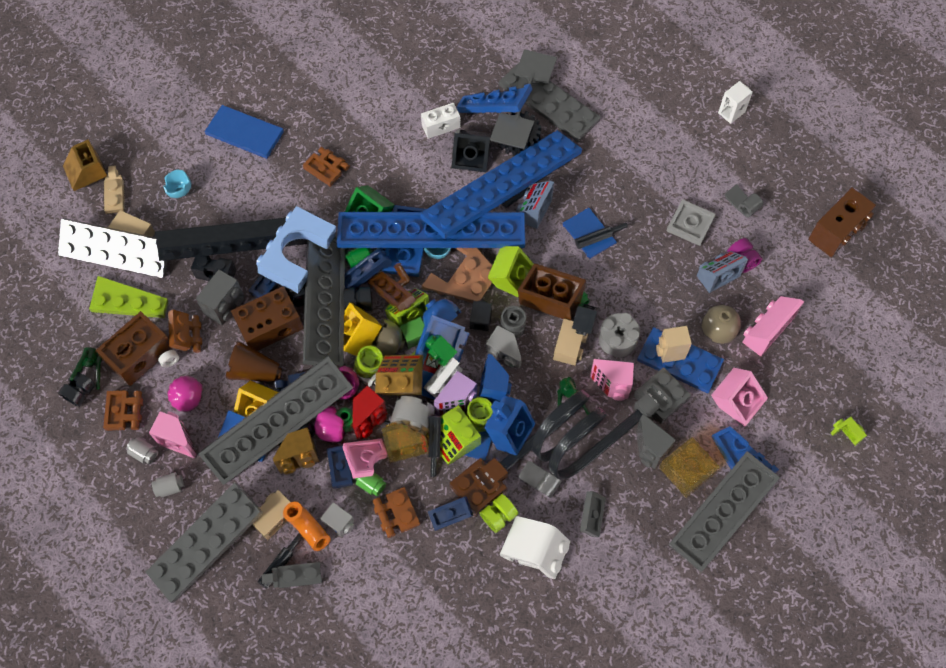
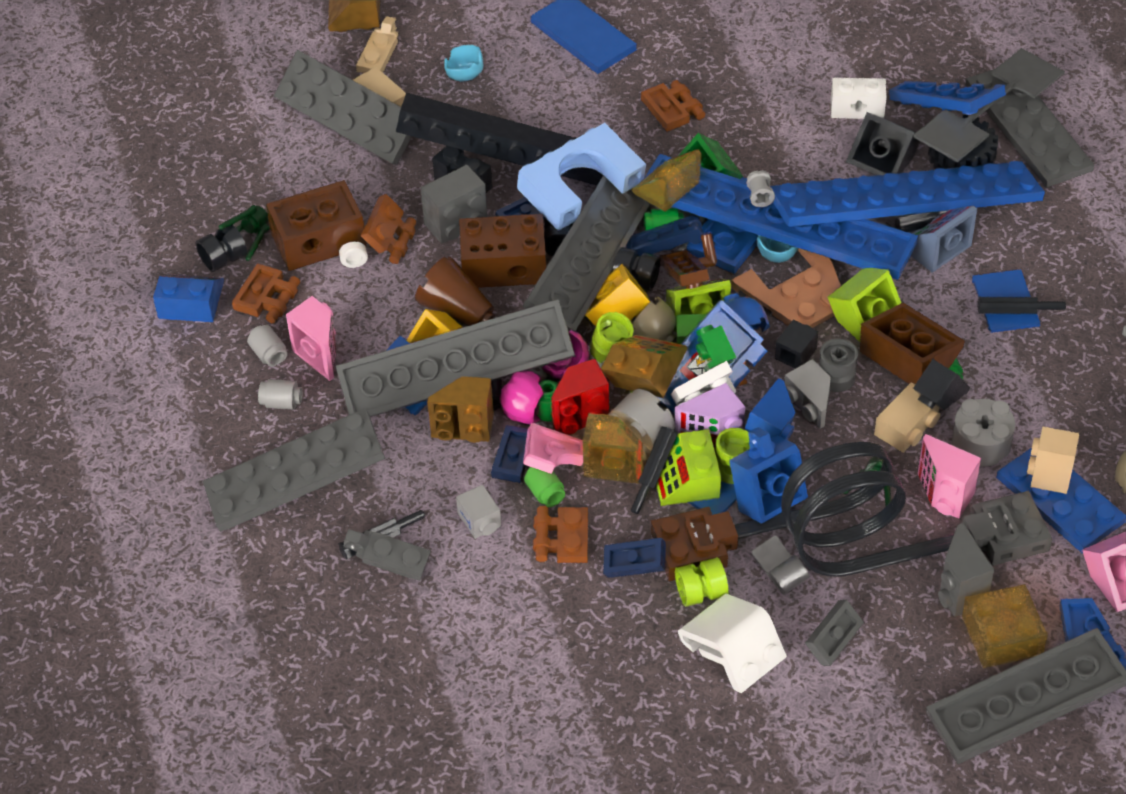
camera: 25 degrees right, 15 degrees down
(70, 433) = (187, 297): none -> blue slope
(125, 300) = (320, 166): lime wing -> none
(185, 393) = (354, 299): dark pink hair -> none
(272, 516) = (398, 476): tan brick -> none
(306, 525) = (434, 499): orange cylinder -> none
(355, 232) = (670, 180): none -> clear yellow slope
(416, 218) = (759, 184): none -> light grey bush

